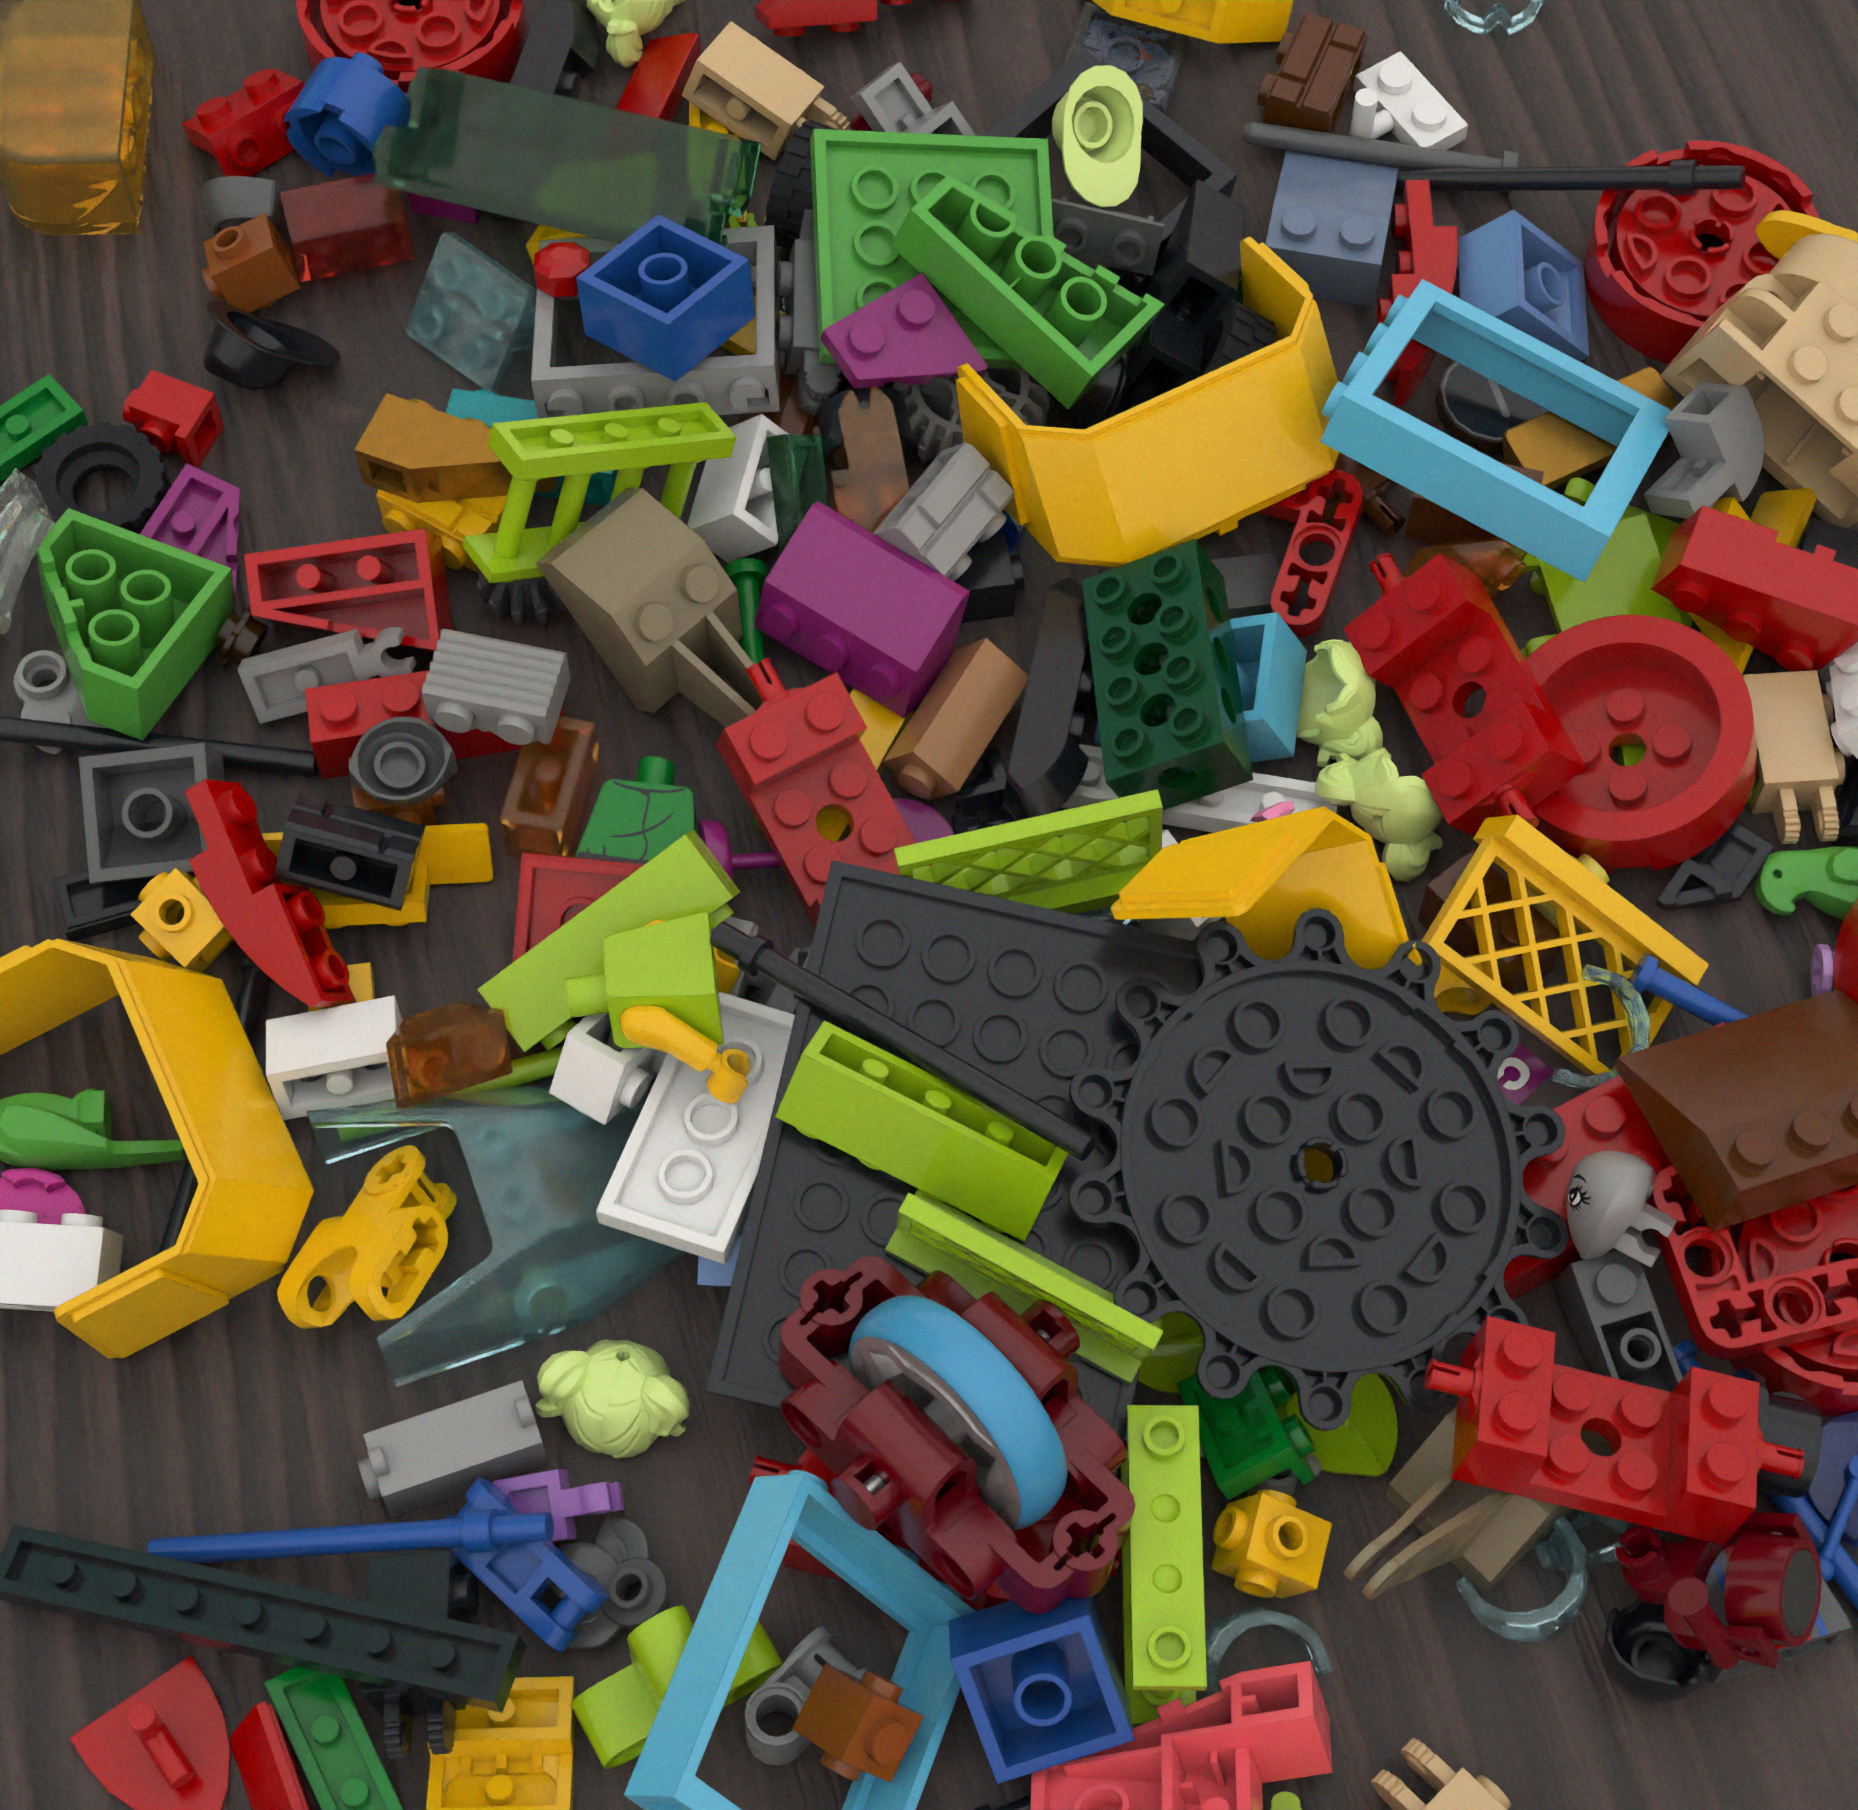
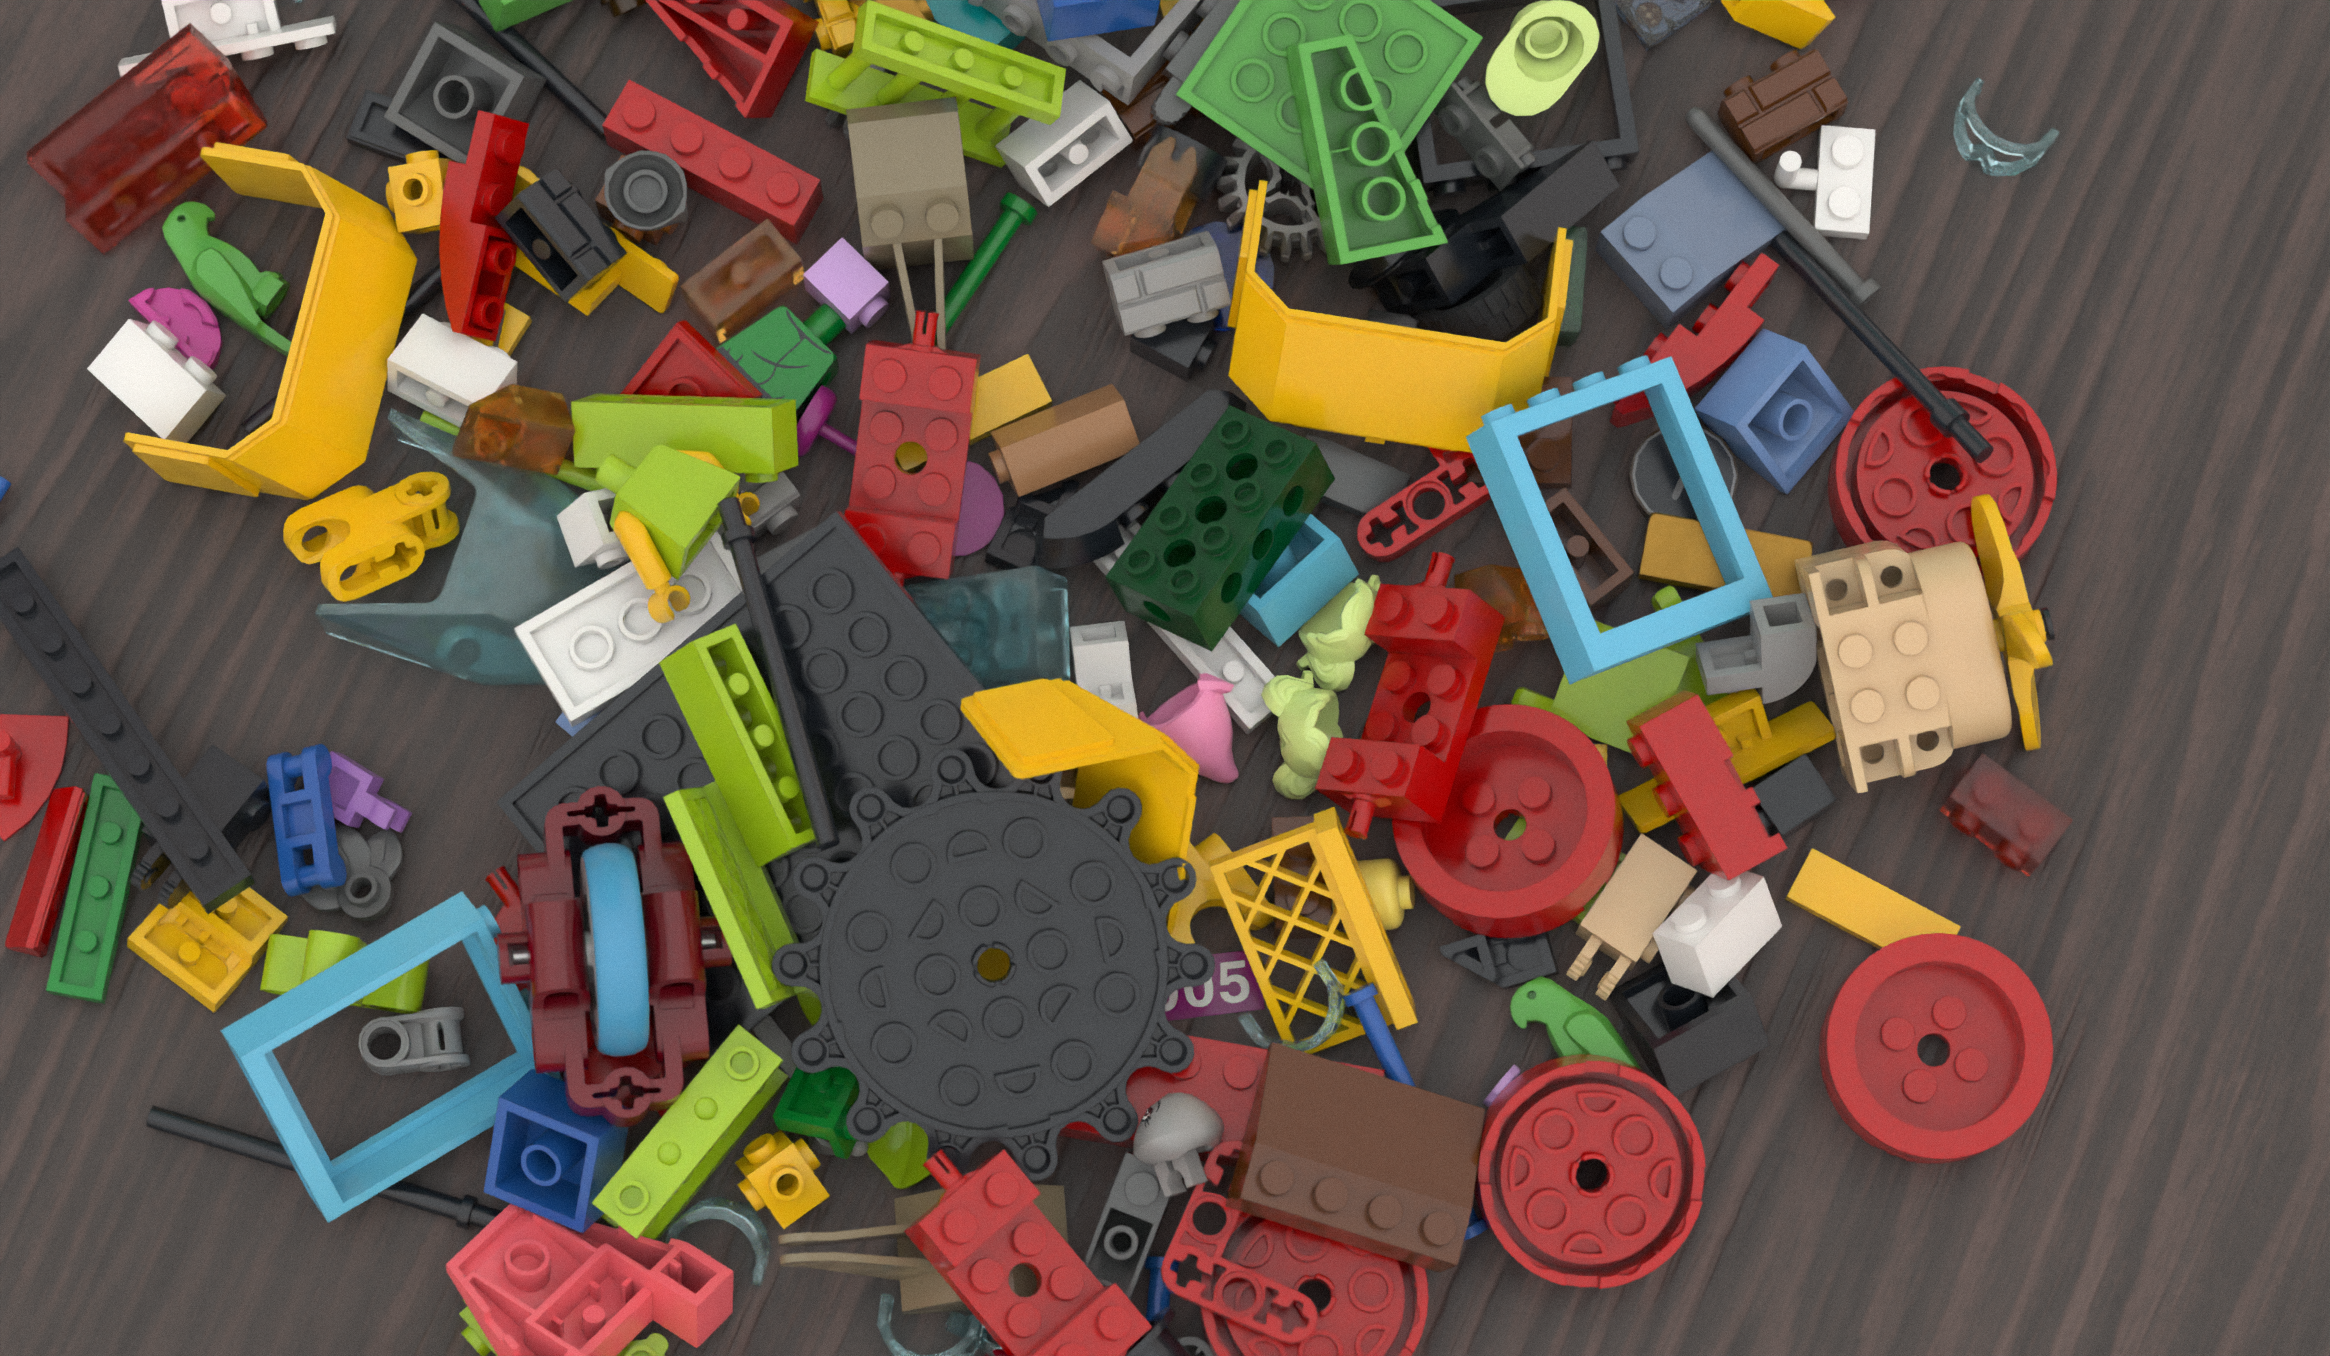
camera: 35 degrees right, 15 degrees up
(279, 678) = (632, 55): light grey plate -> none
(452, 1447) = (324, 709): light grey brick -> none
(477, 1531) = (285, 780): blue bar -> none
(496, 687) = (746, 186): light grey brick -> none
(613, 1397) = (447, 758): yellowish green hair -> none
(650, 724) = (848, 286): none -> lavender brick
(796, 480) = (1097, 171): clear green tile -> none
(858, 1723) = (423, 1088): dark orange brick -> none
(862, 609) = (1059, 308): magenta slope -> none
(901, 339) = (1241, 126): magenta wing -> none
(1044, 870) = (992, 615): lime fence -> none

